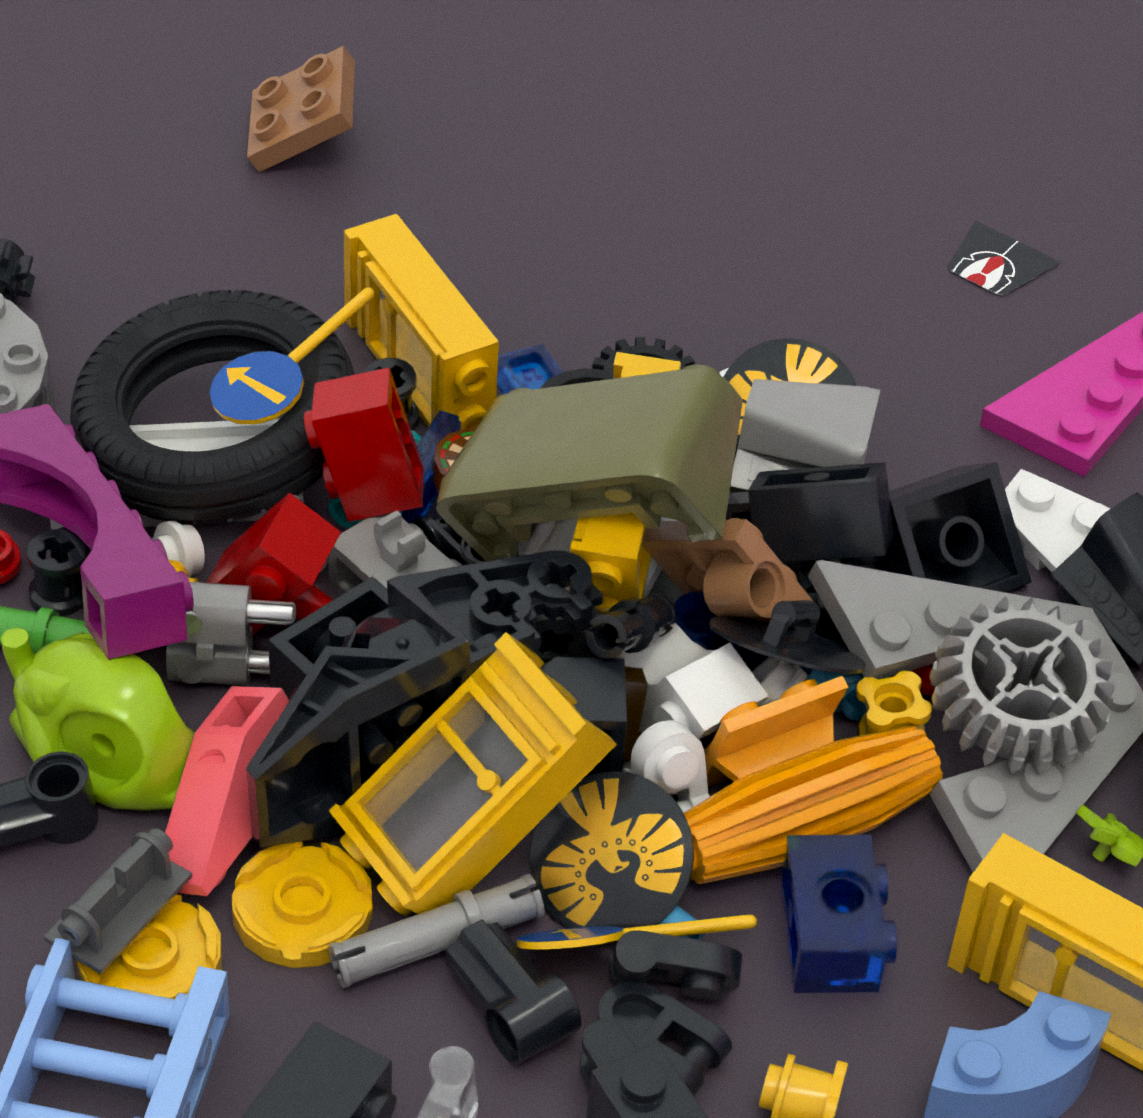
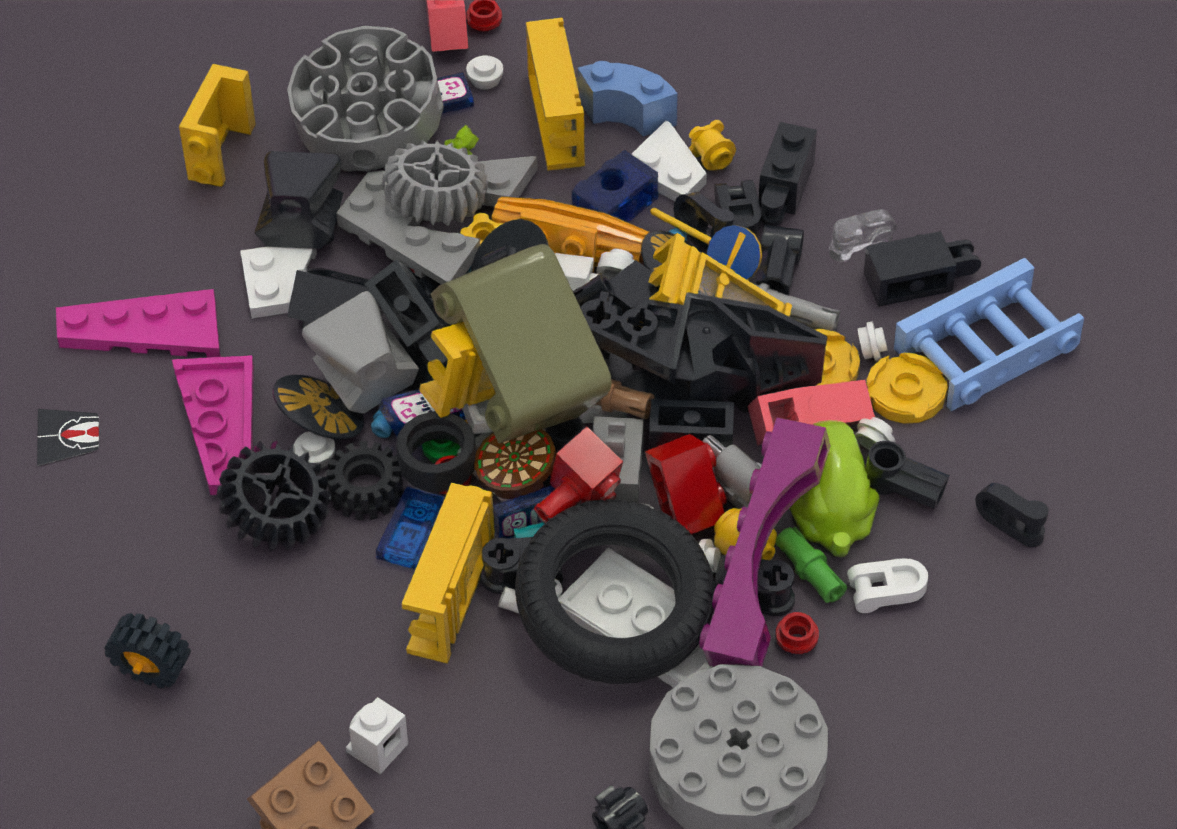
camera: 130 degrees left, 5 degrees up
(111, 832) = (873, 431): none -> white plate
(121, 901) = (904, 396): dark grey hinge -> none
(254, 964) = (872, 341): none -> white plate
(269, 383) = (599, 539): blue piece -> none
(317, 194) = (371, 729): none -> white brick
(610, 111) = (147, 650): none -> black wheel
(697, 291) = (306, 502): none -> black gear
(841, 1023) = (674, 162): none -> white wing
(912, 371) = (218, 407): none -> dark pink wing

